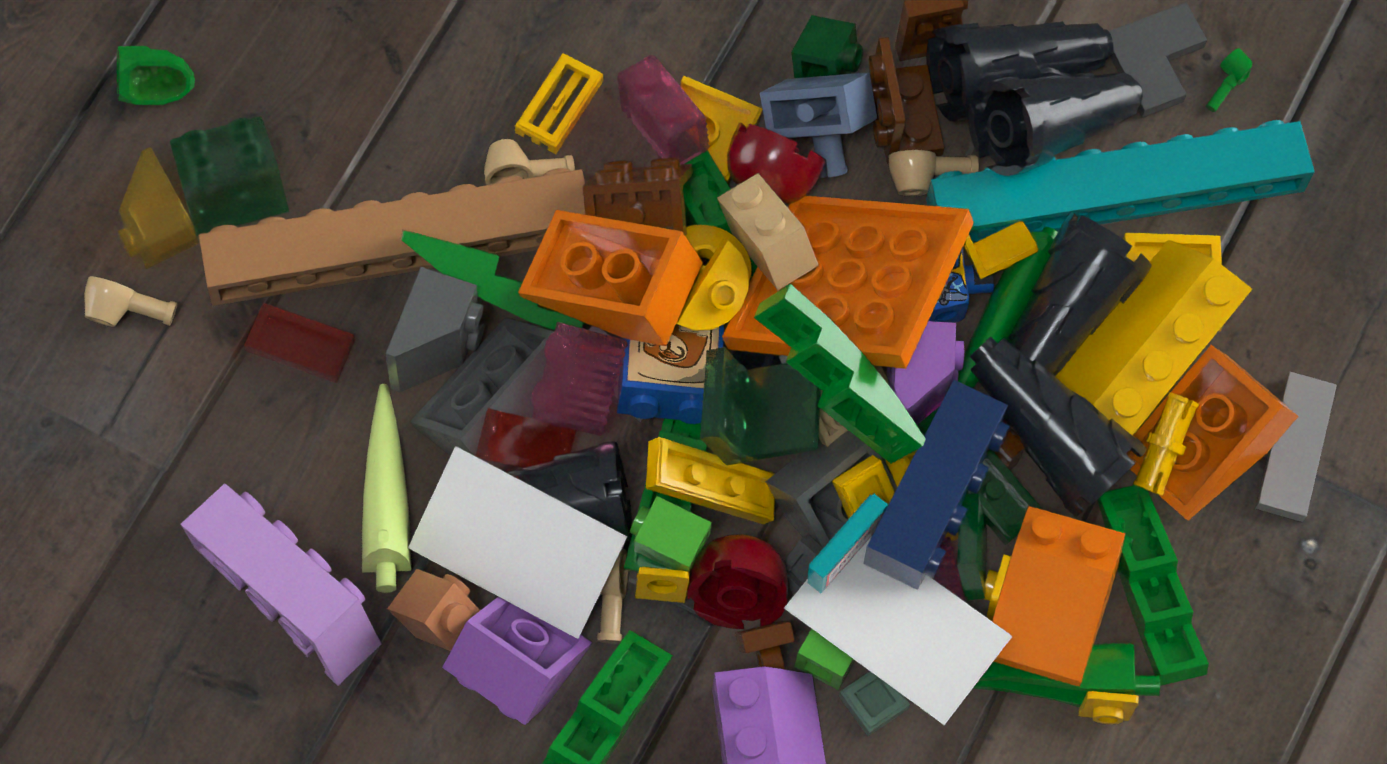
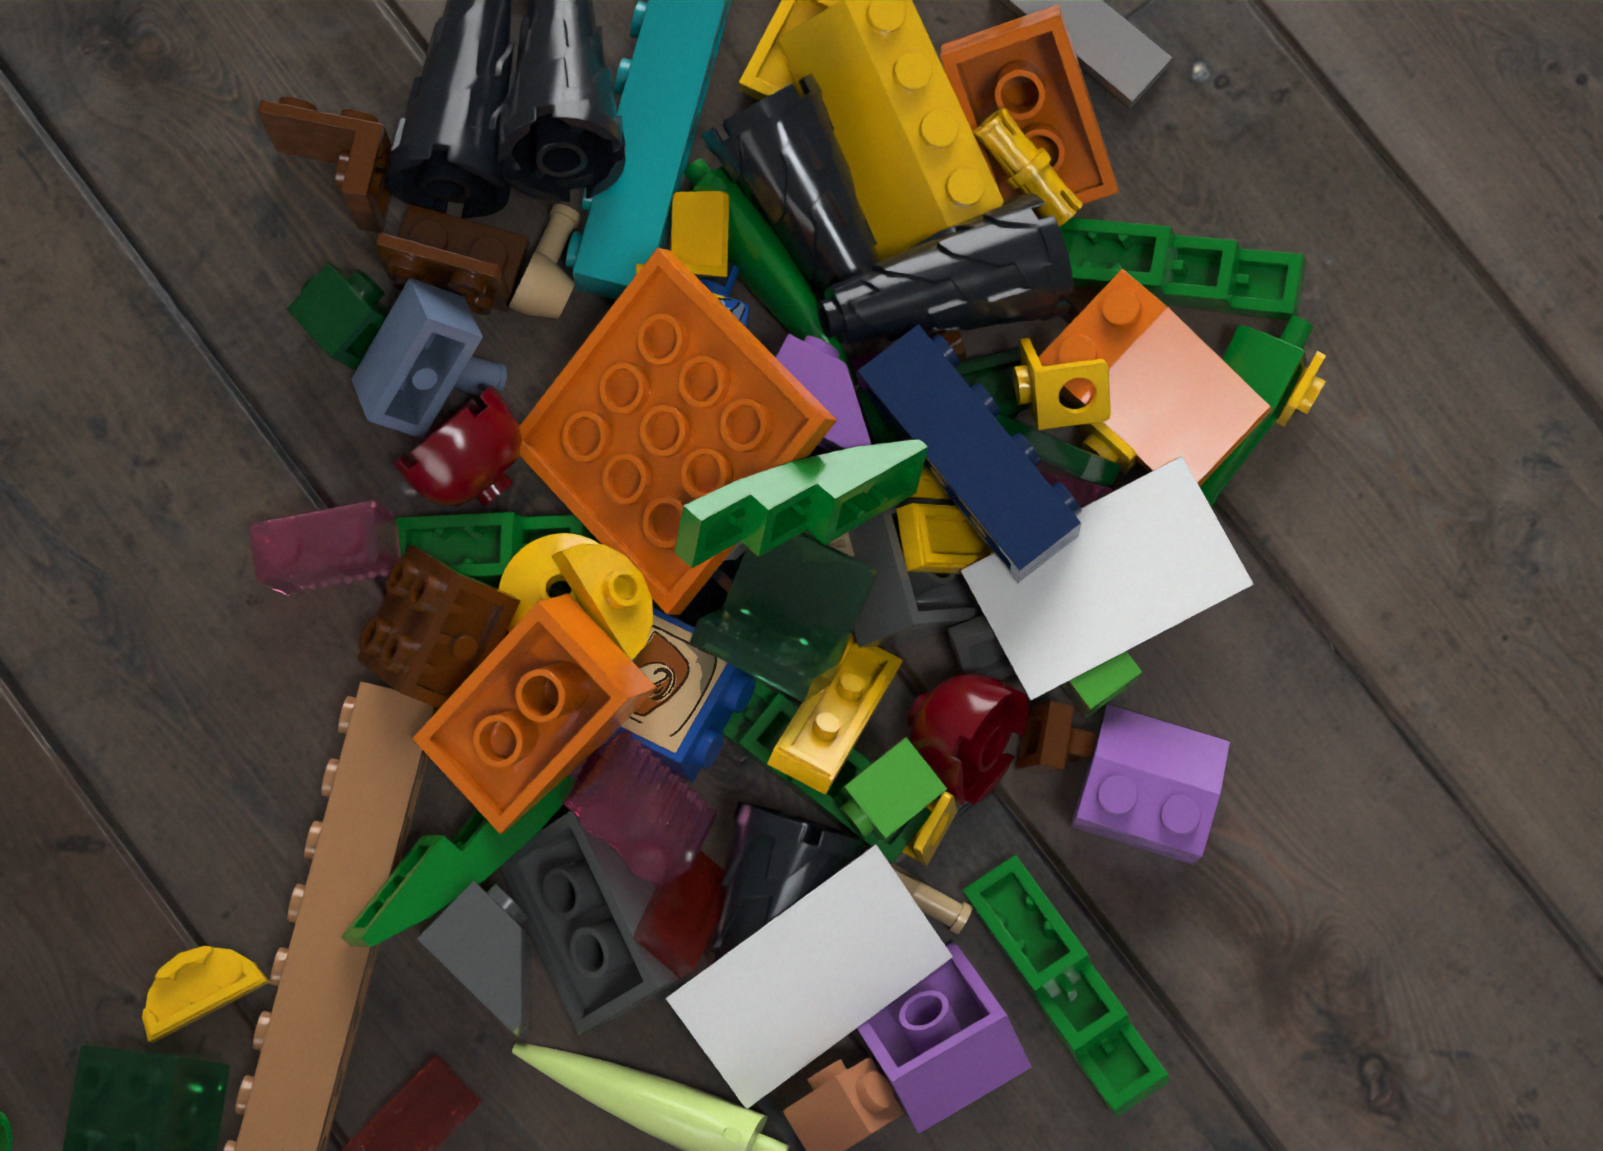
camera: 60 degrees left, 10 degrees up
(330, 165) = (195, 986): none -> yellow plate
(508, 159) = (300, 765): tan bar -> none
(540, 134) = (274, 710): yellow tile -> none
(722, 116) = (361, 475): yellow tile -> none
(768, 231) = (560, 496): tan brick -> none
(846, 543) = (995, 591): teal tile -> none
(873, 702) = (1172, 654): sand green tile -> none
(1006, 510) = (1041, 387): none -> yellow bracket

